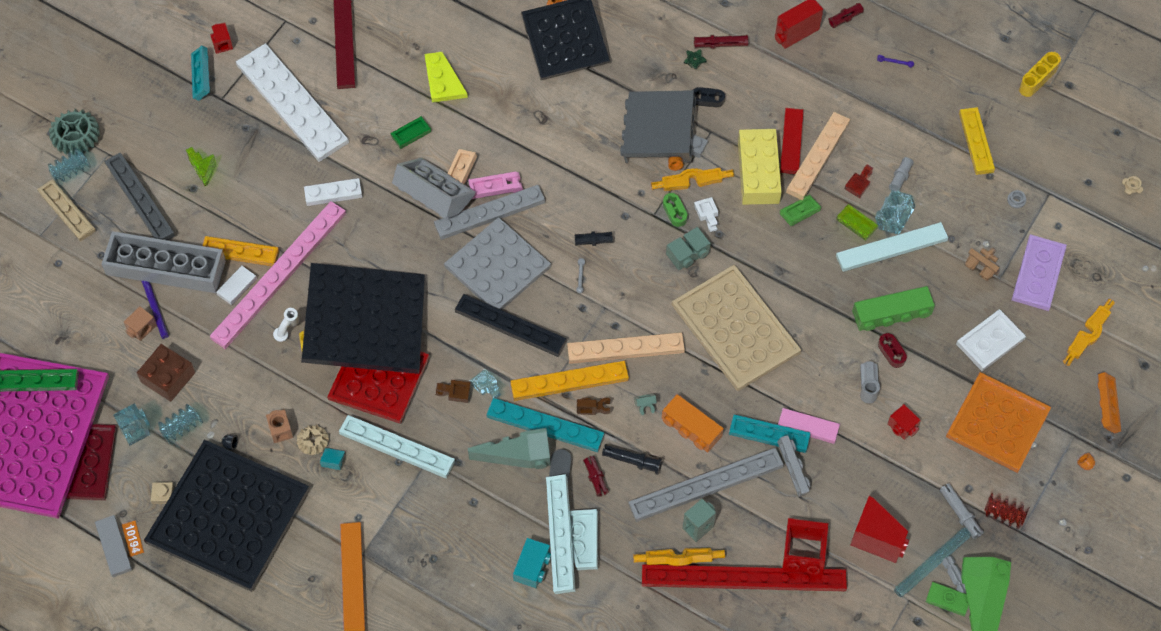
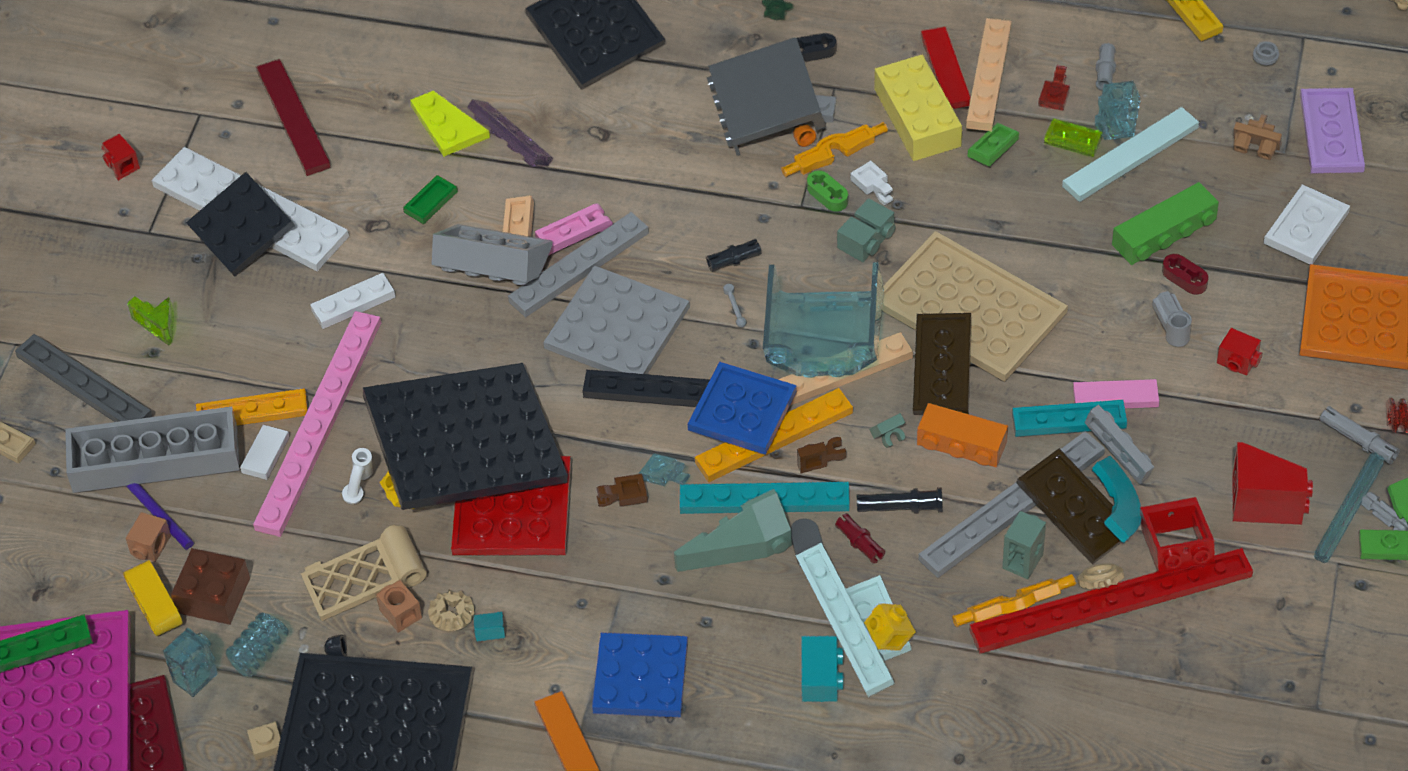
camera: 15 degrees left, 10 degrees down
(126, 368) = (152, 598): none -> yellow beam
(200, 73) = (107, 207): teal plate -> none
(279, 113) = (240, 224): none -> black plate
(291, 390) = (395, 551): none -> tan piece
(397, 446) = (573, 582): light aqua plate -> none
(415, 526) = (640, 675): none -> blue plate
(480, 99) = (505, 129): none -> clear purple plate
(552, 357) = (742, 408): none -> blue plate
(585, 551) = (889, 626): none -> yellow brick
(625, 315) = (822, 330): none -> clear light blue windscreen
(700, 365) = (942, 361): none -> dark brown tile
(742, 558) = (1100, 576): none -> tan gear
(747, 501) = (1071, 504): none -> dark brown tile
(782, 509) = (1126, 512): none -> teal tile

